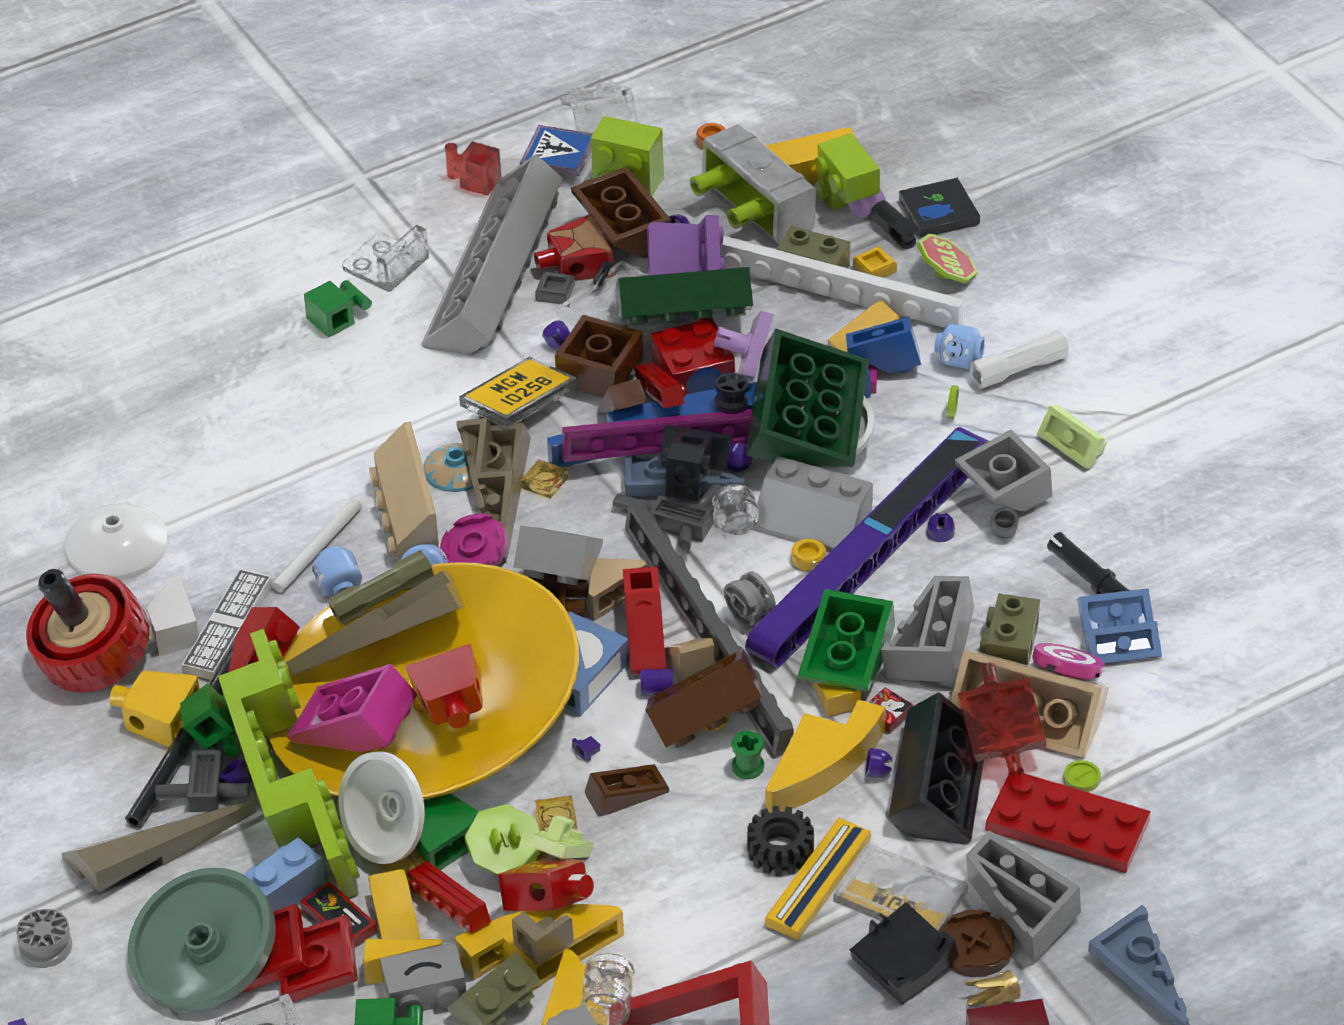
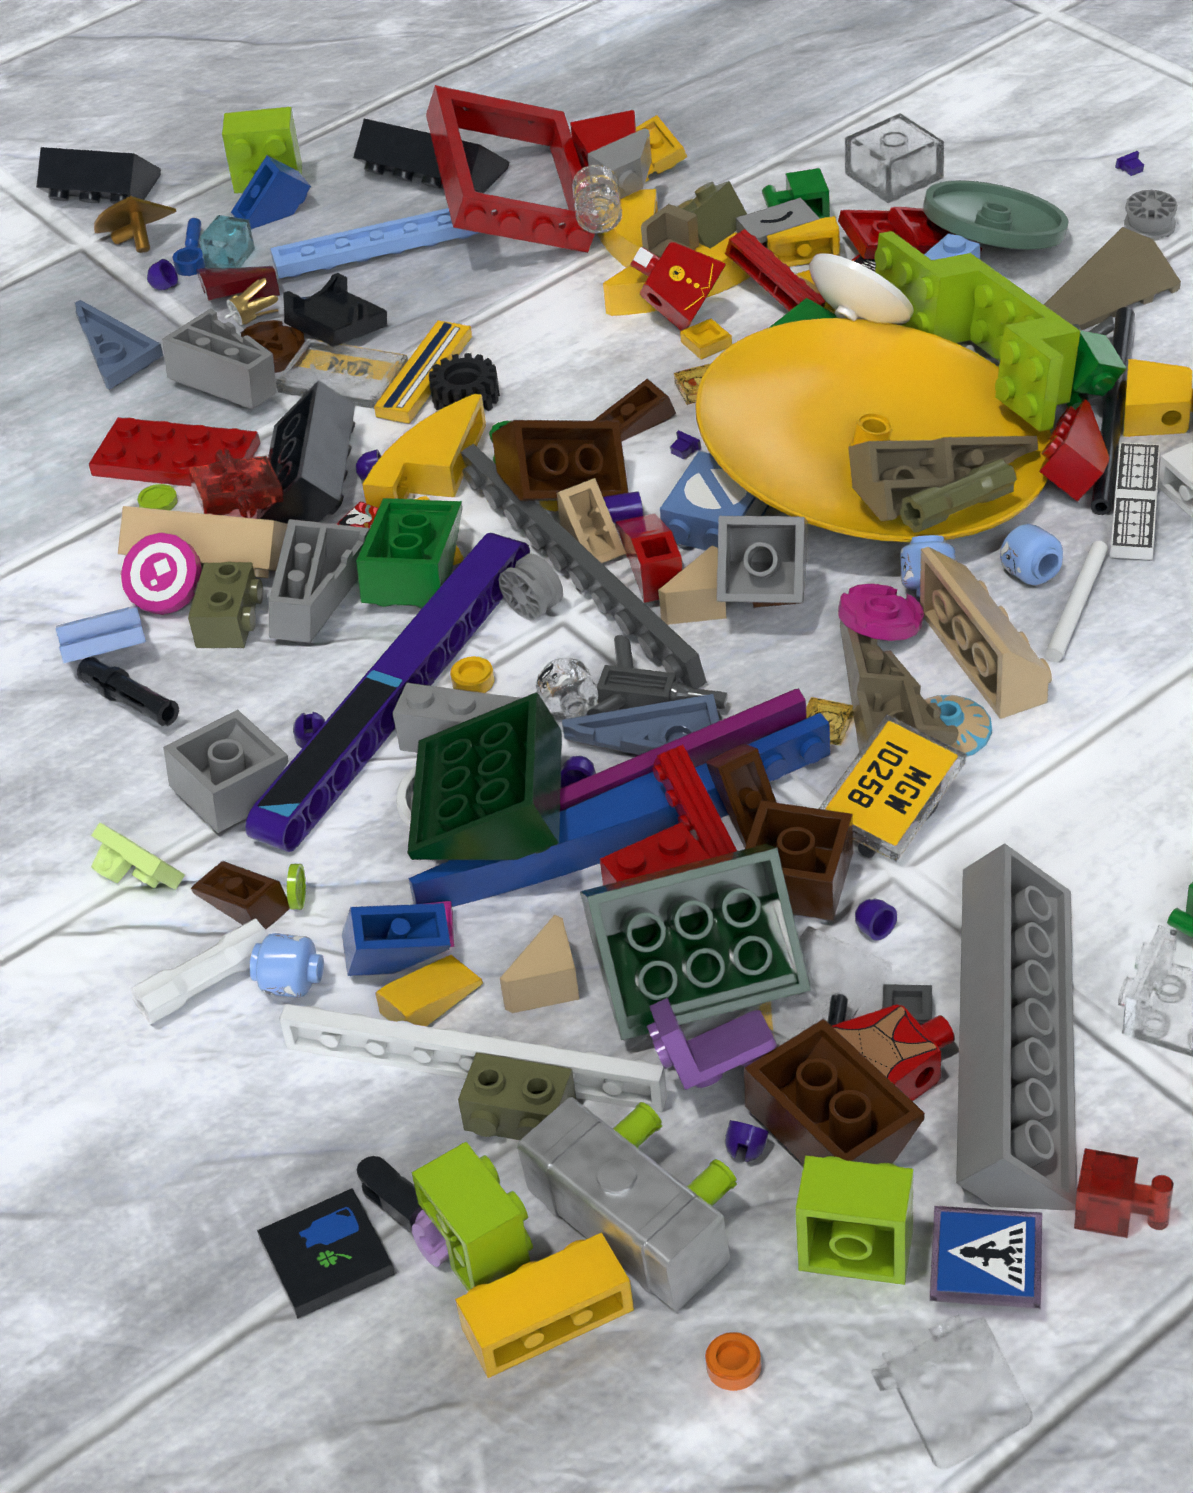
camera: 175 degrees right, 0 degrees up
(356, 711) = (930, 370): dark pink slope -> none
(448, 686) = (834, 384): torso -> none
(502, 839) = (735, 324): lime piece -> none
(562, 840) = (678, 329): yellowish green hinge -> none
(689, 456) = (628, 729): black tile -> none
(731, 393) = (597, 778): black wheel -> none
(749, 345) = (576, 859): lavender tile -> none
(792, 317) = (542, 972): none -> tan slope
(875, 263) = (423, 1124): yellow tile -> none
(946, 258) = (308, 1121): piece -> none
(993, 411) = (242, 894): none -> reddish brown slope

